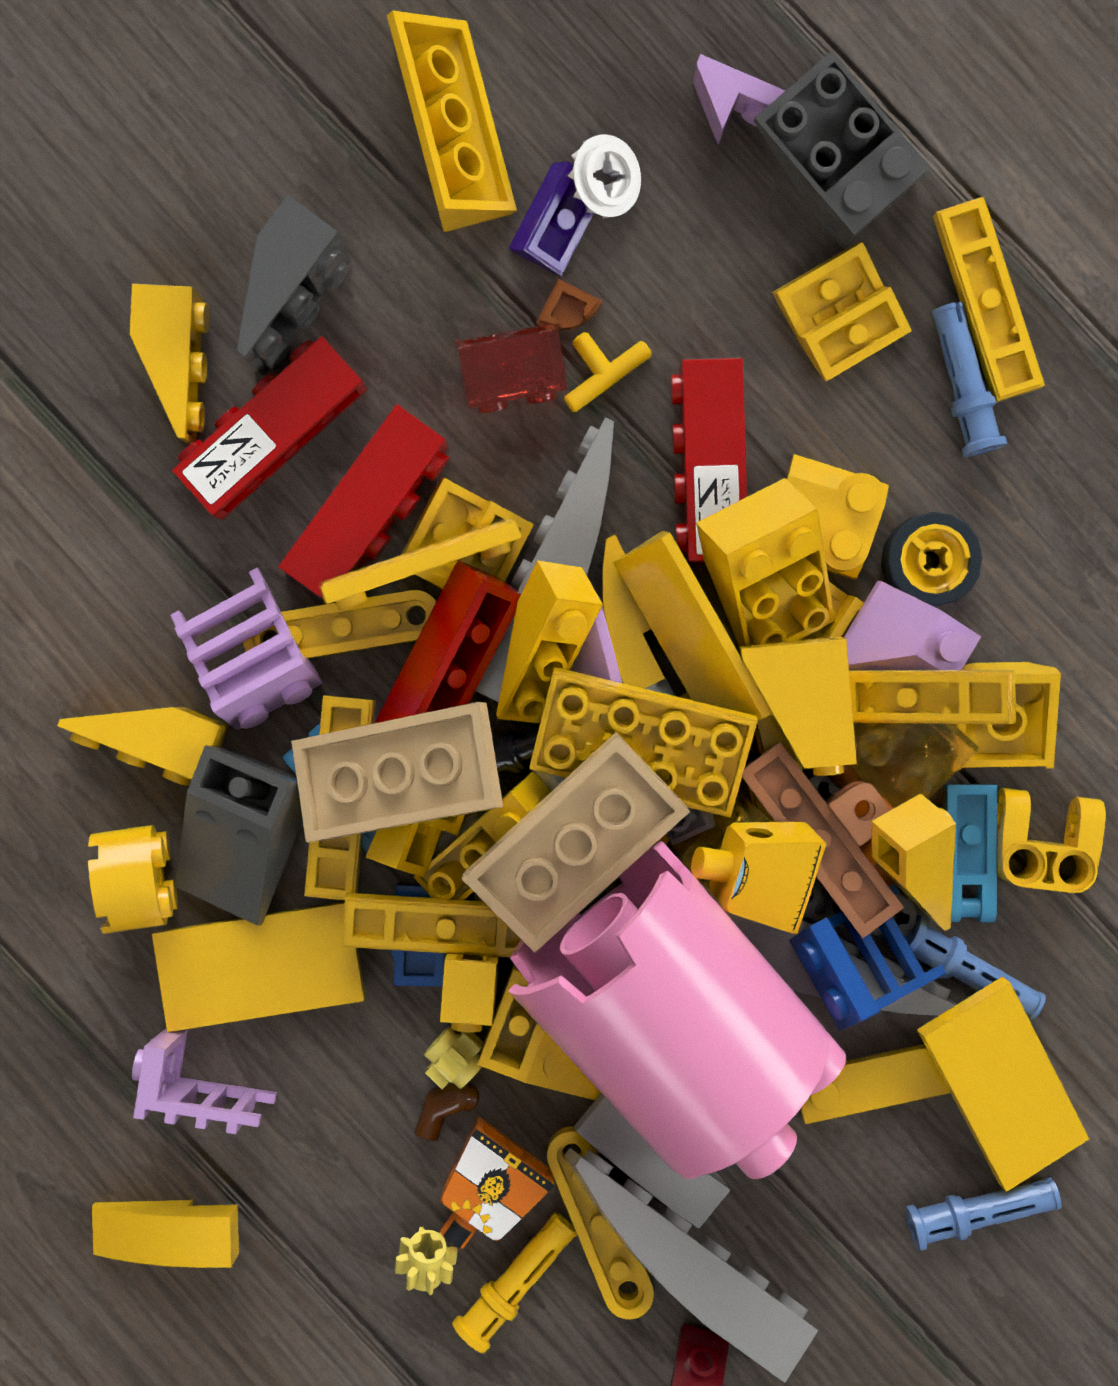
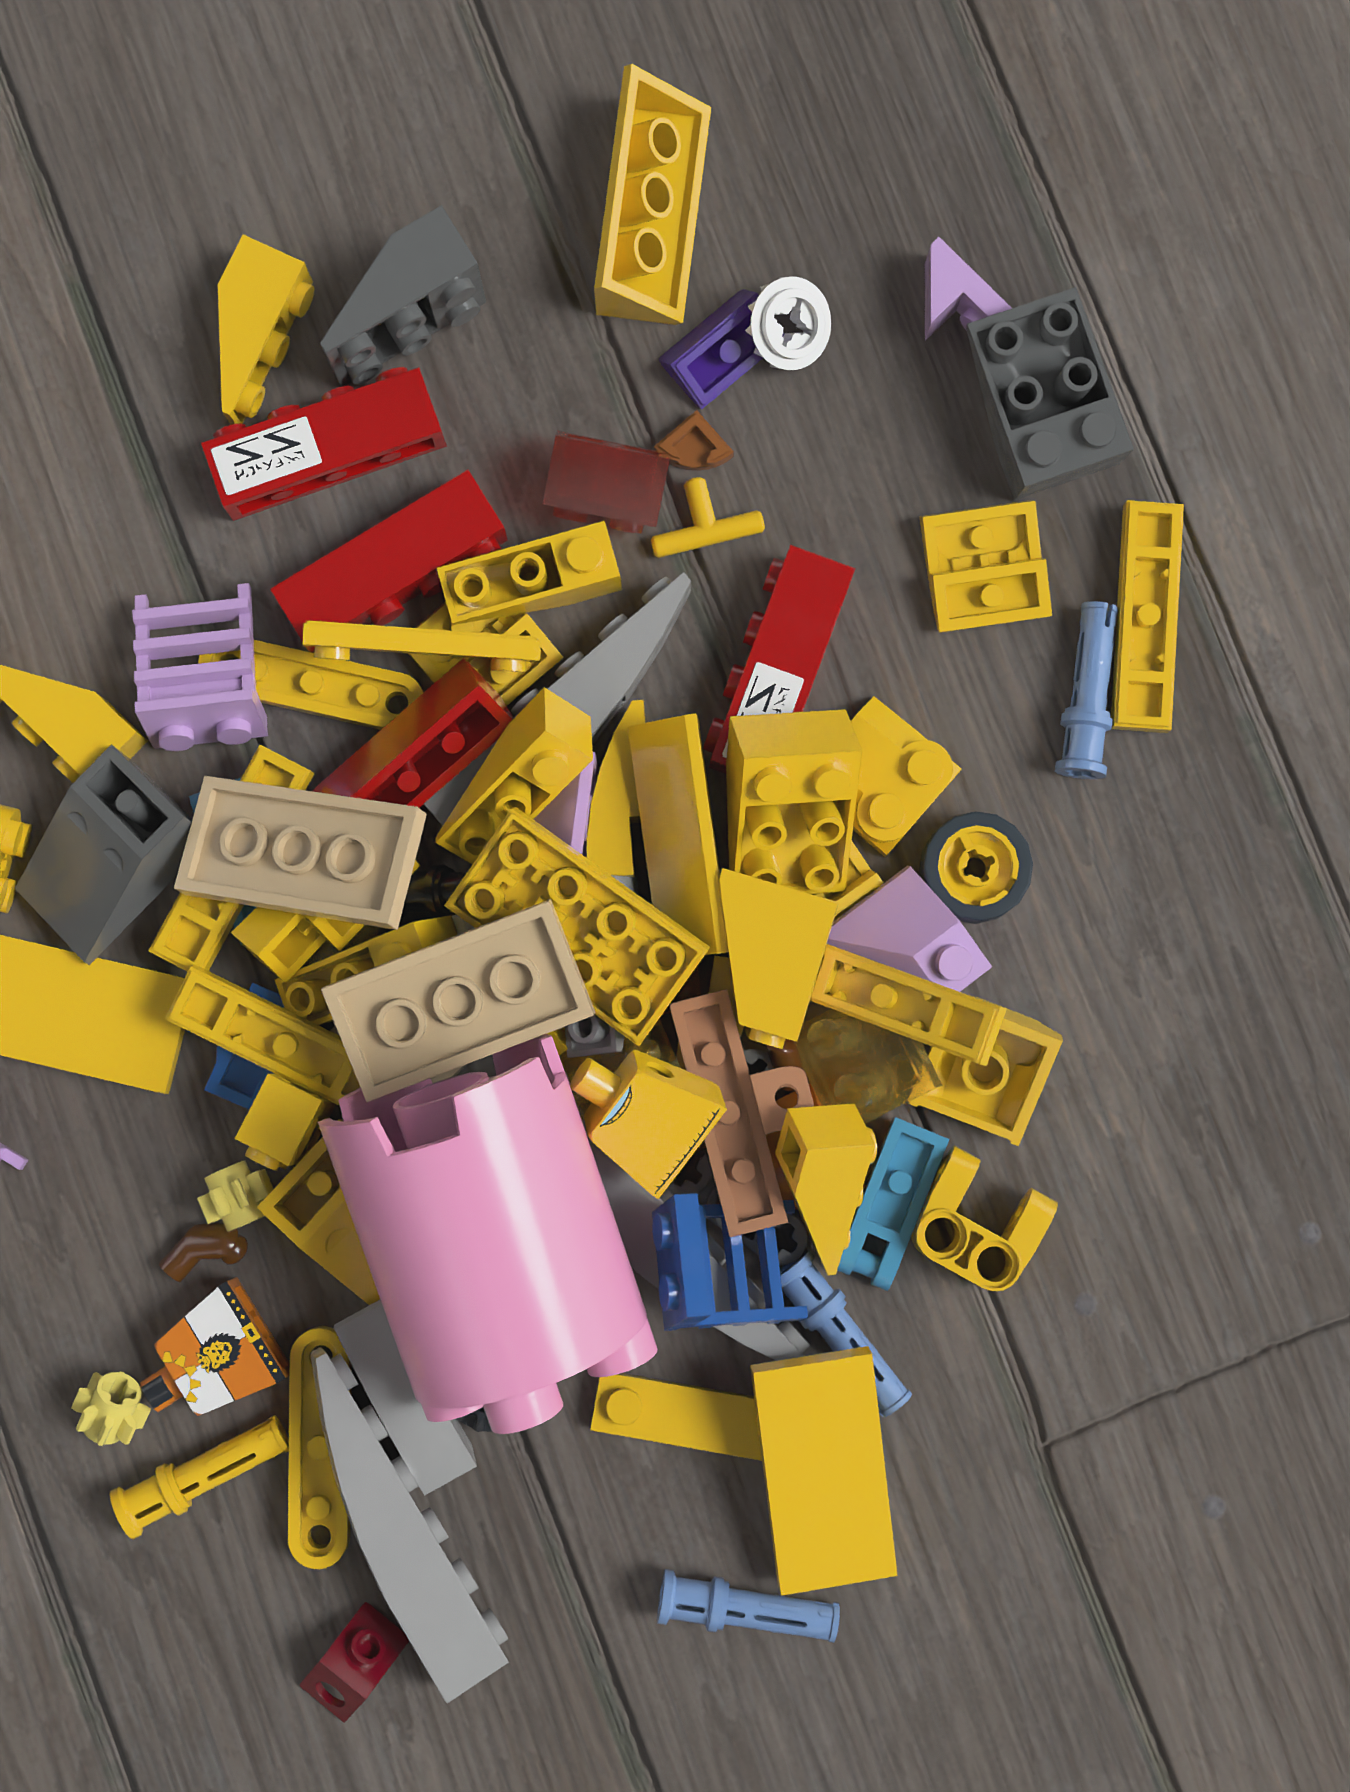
camera: 25 degrees right, 5 degrees down
(483, 469) = (532, 576): none -> yellow slope

